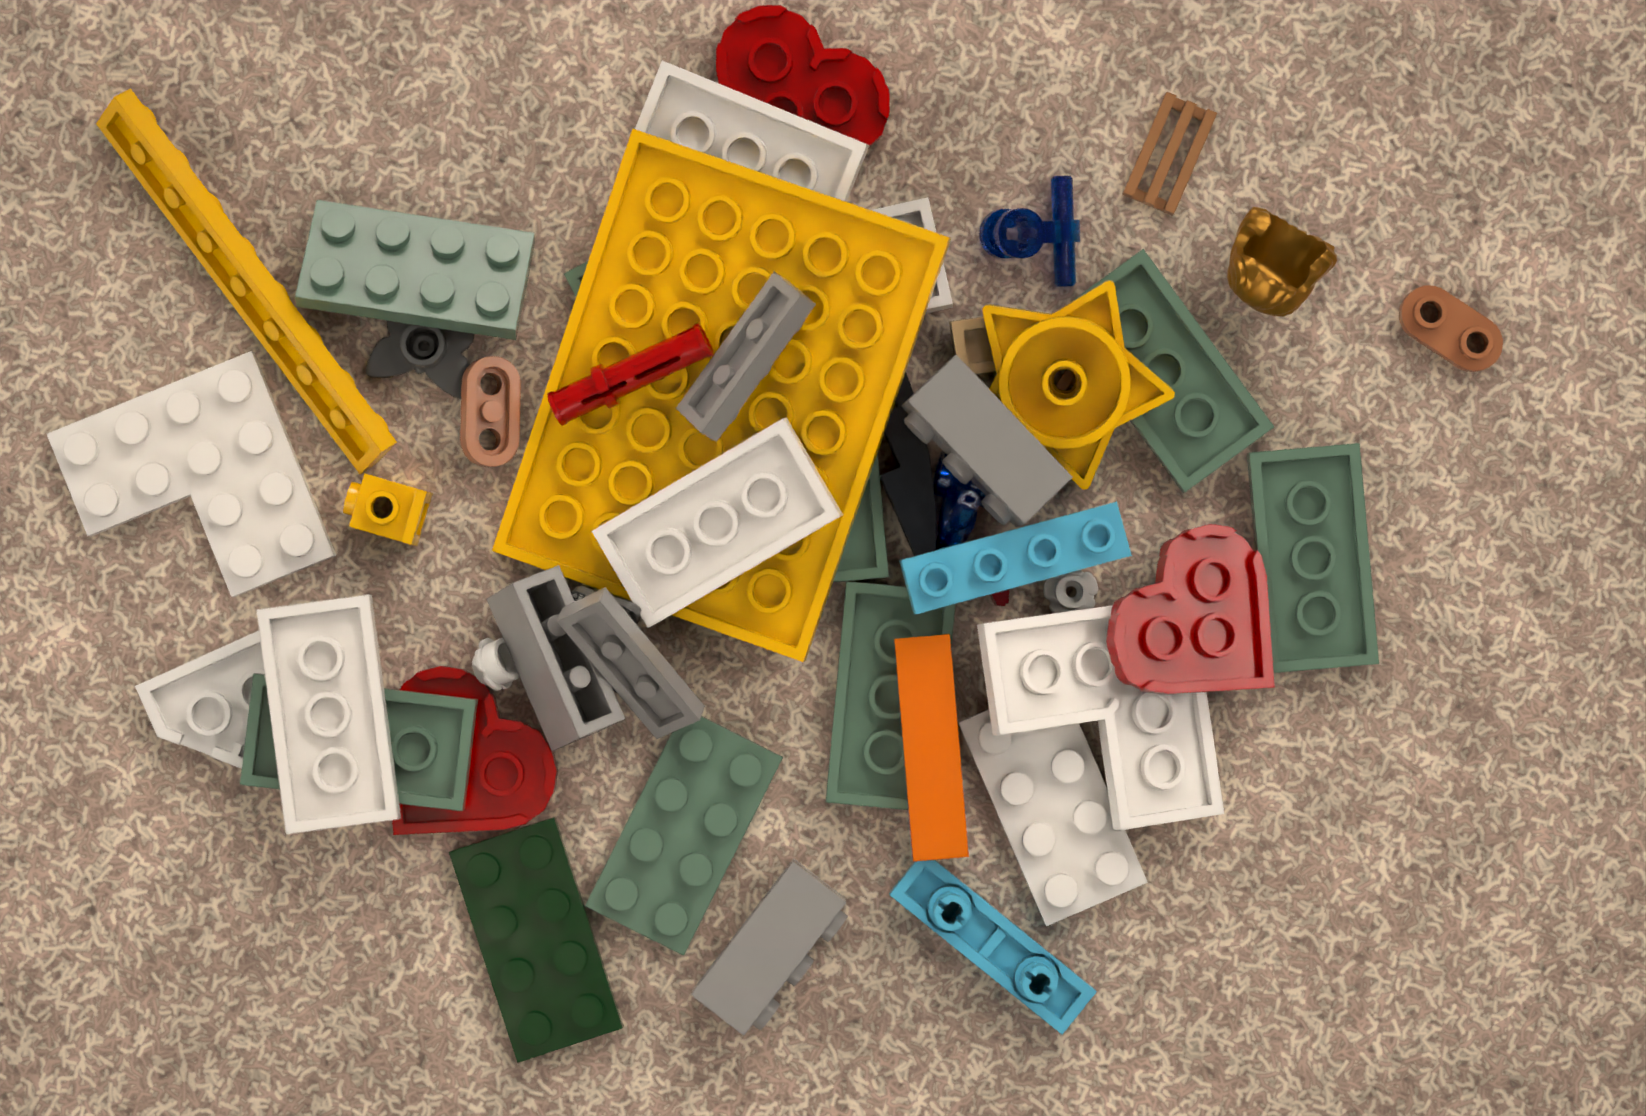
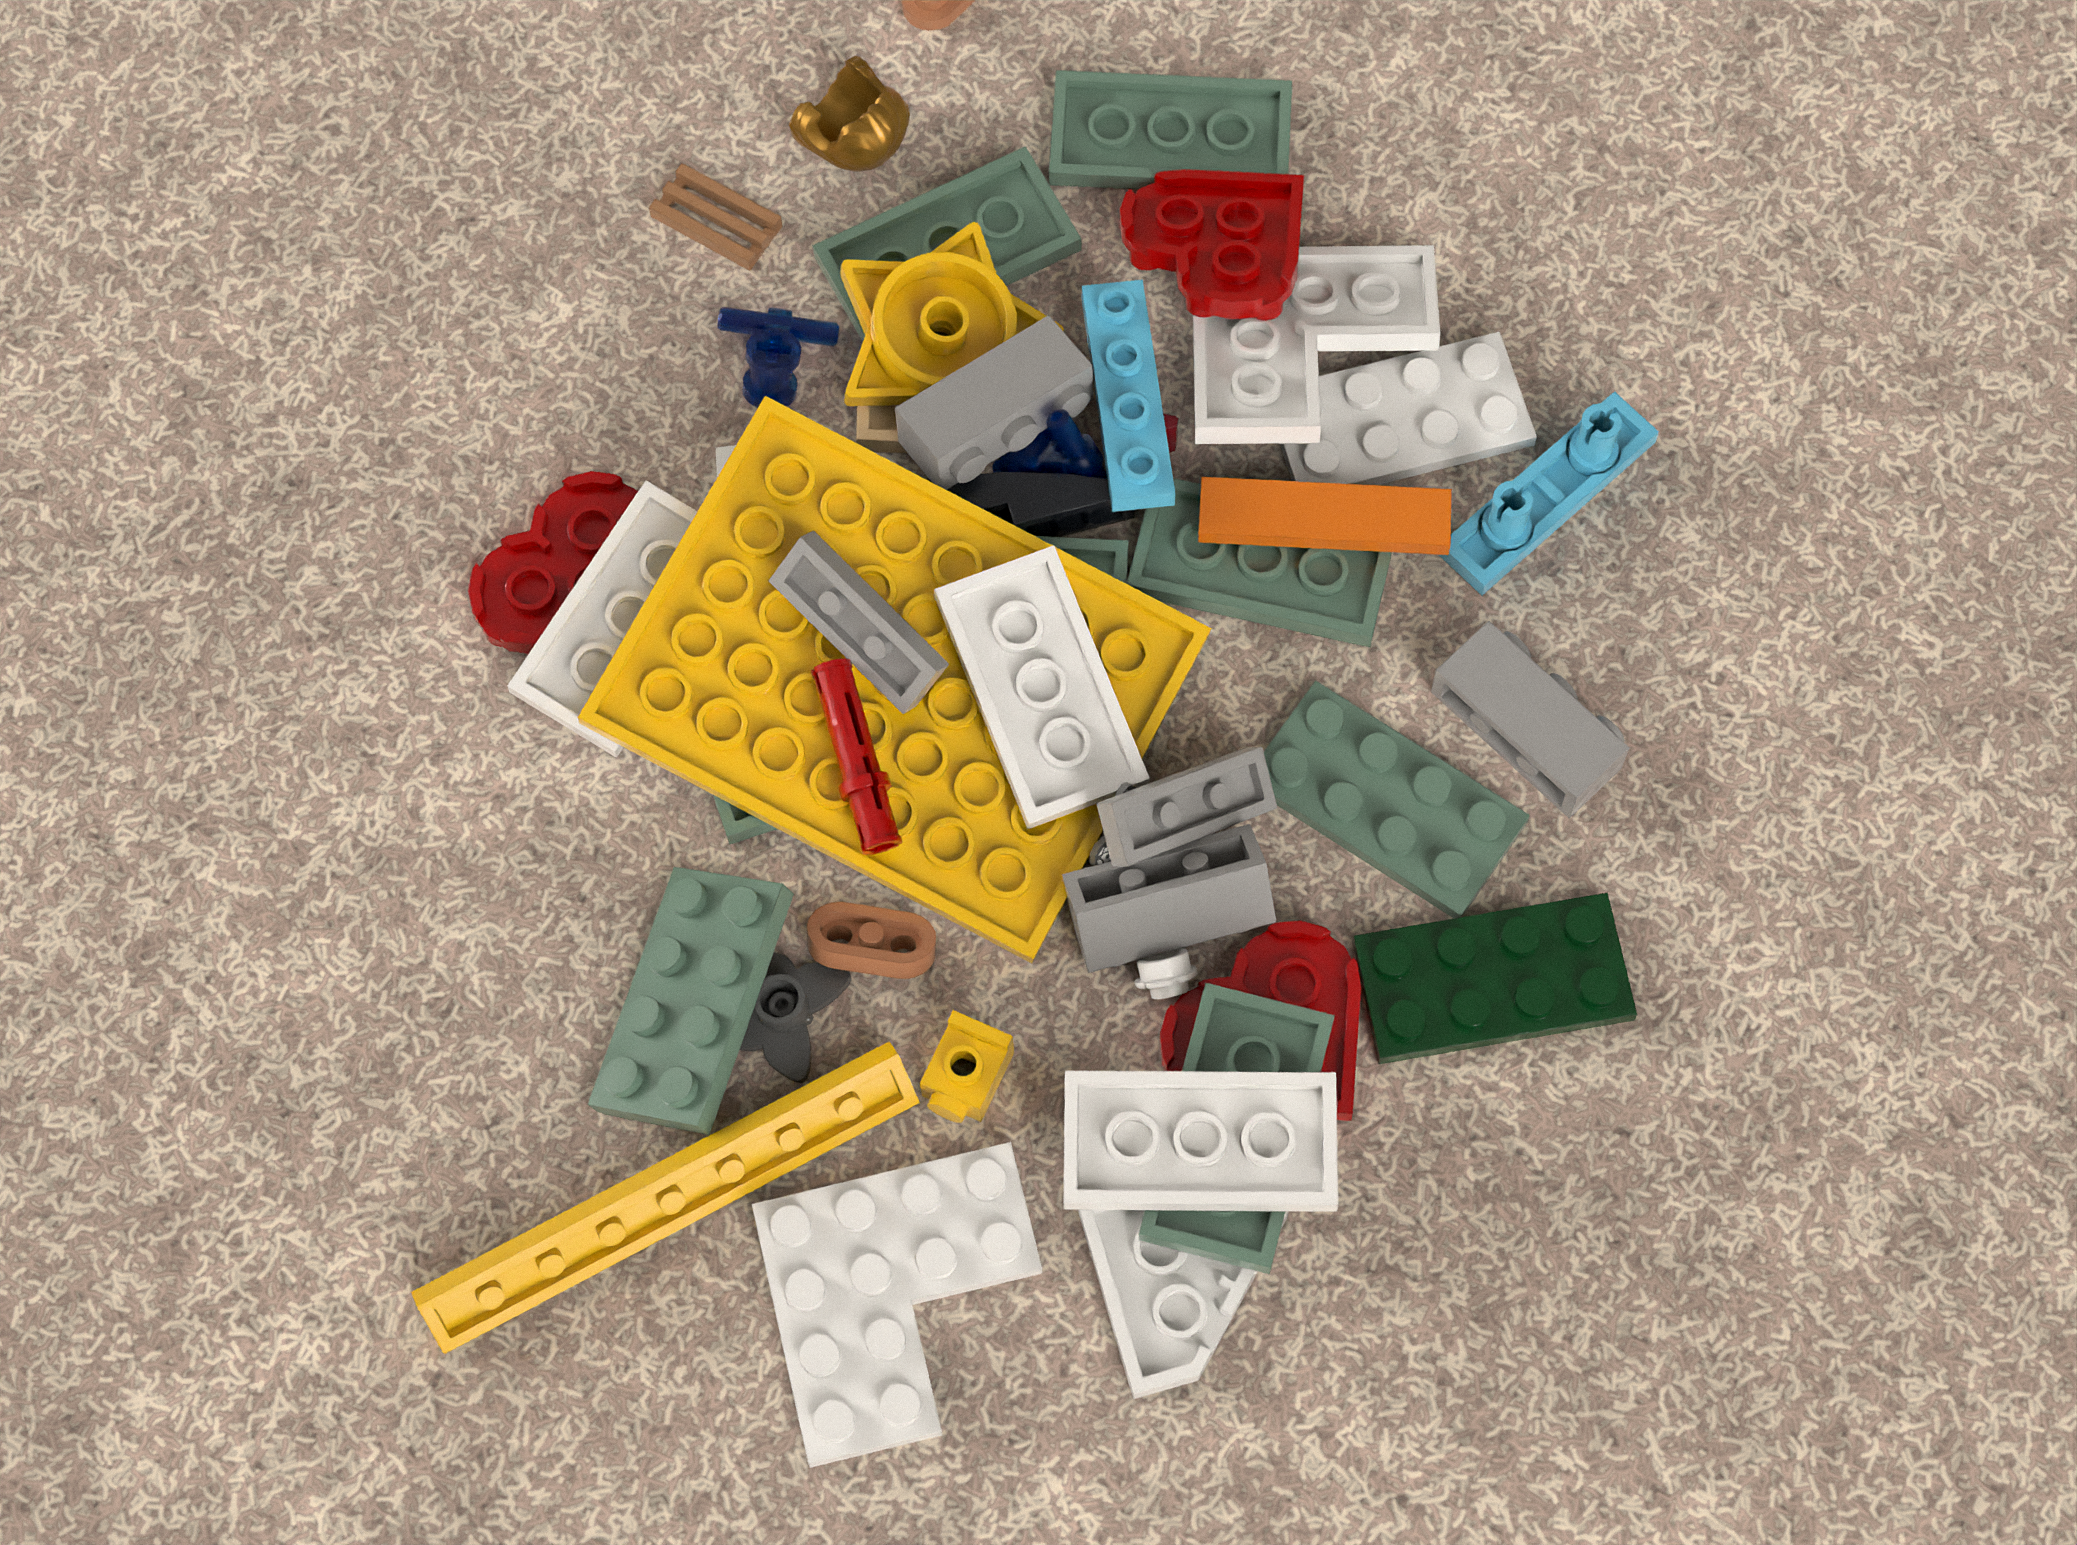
camera: 80 degrees left, 20 degrees down
(1085, 586) = (1179, 381): white plate -> none

